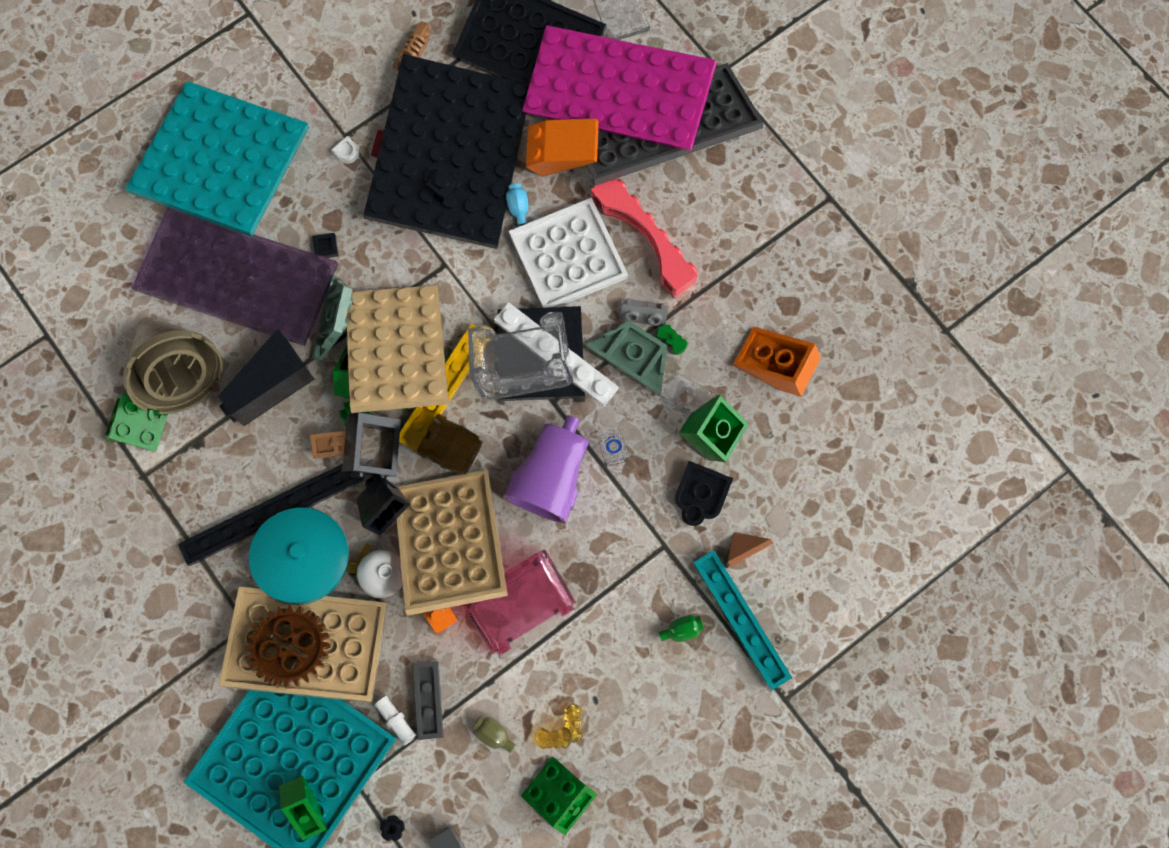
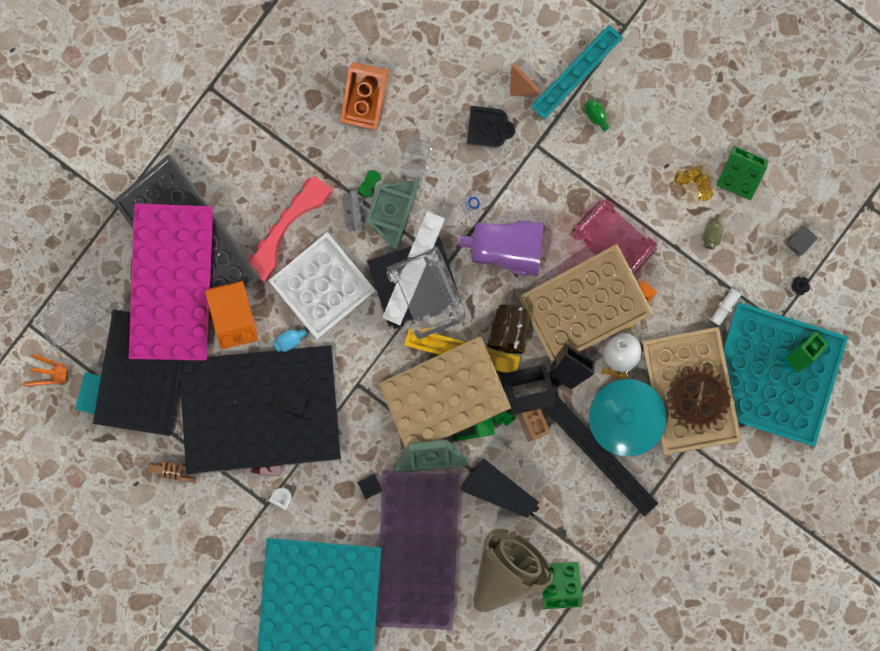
camera: 100 degrees left, 10 degrees up
(428, 700) = (703, 287): dark grey plate -> none
(714, 429) = (438, 128): green slope -> none

